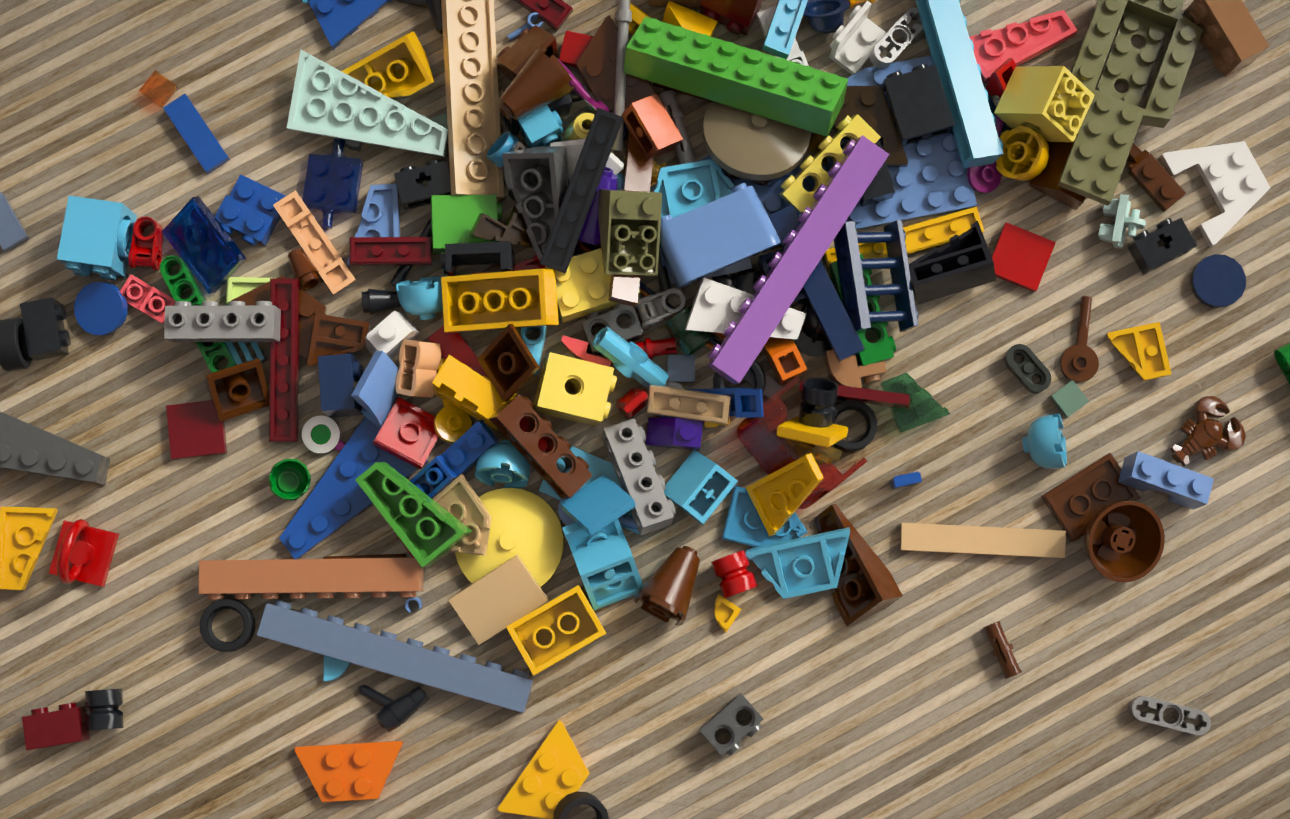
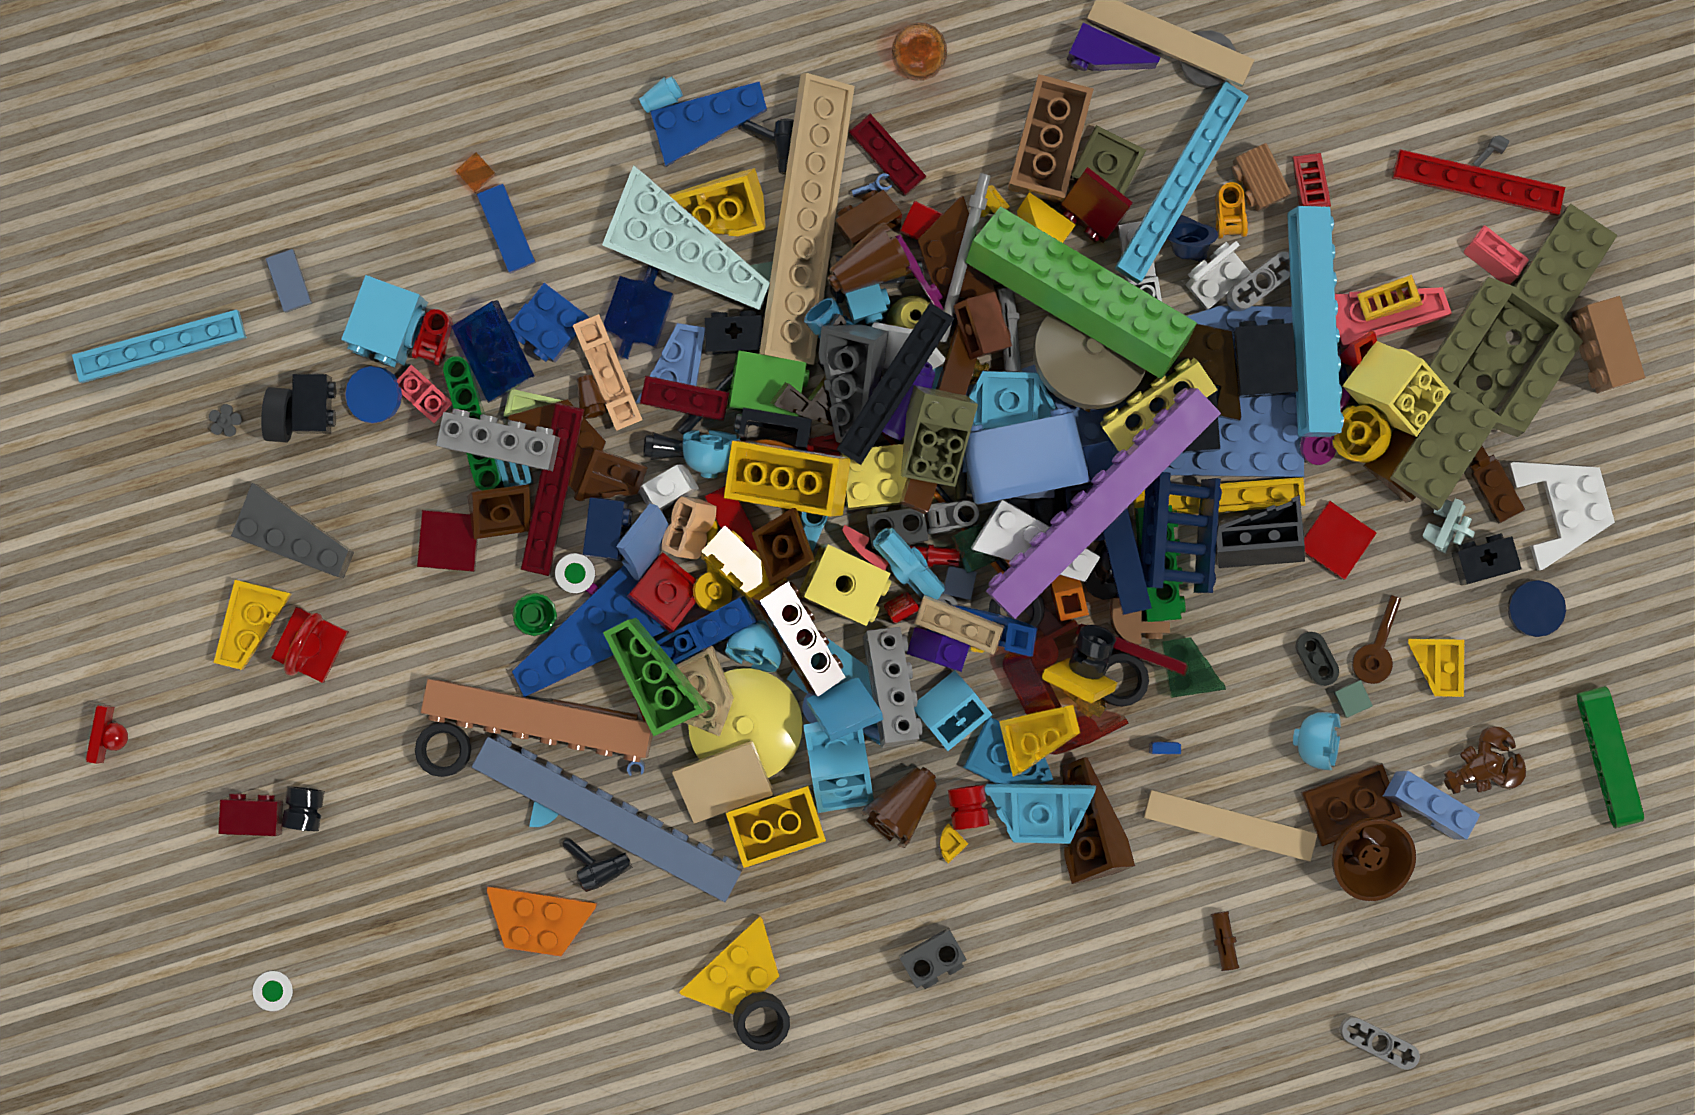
camera: 10 degrees right, 5 degrees up
(1022, 15) = (1397, 285): none -> yellow slope

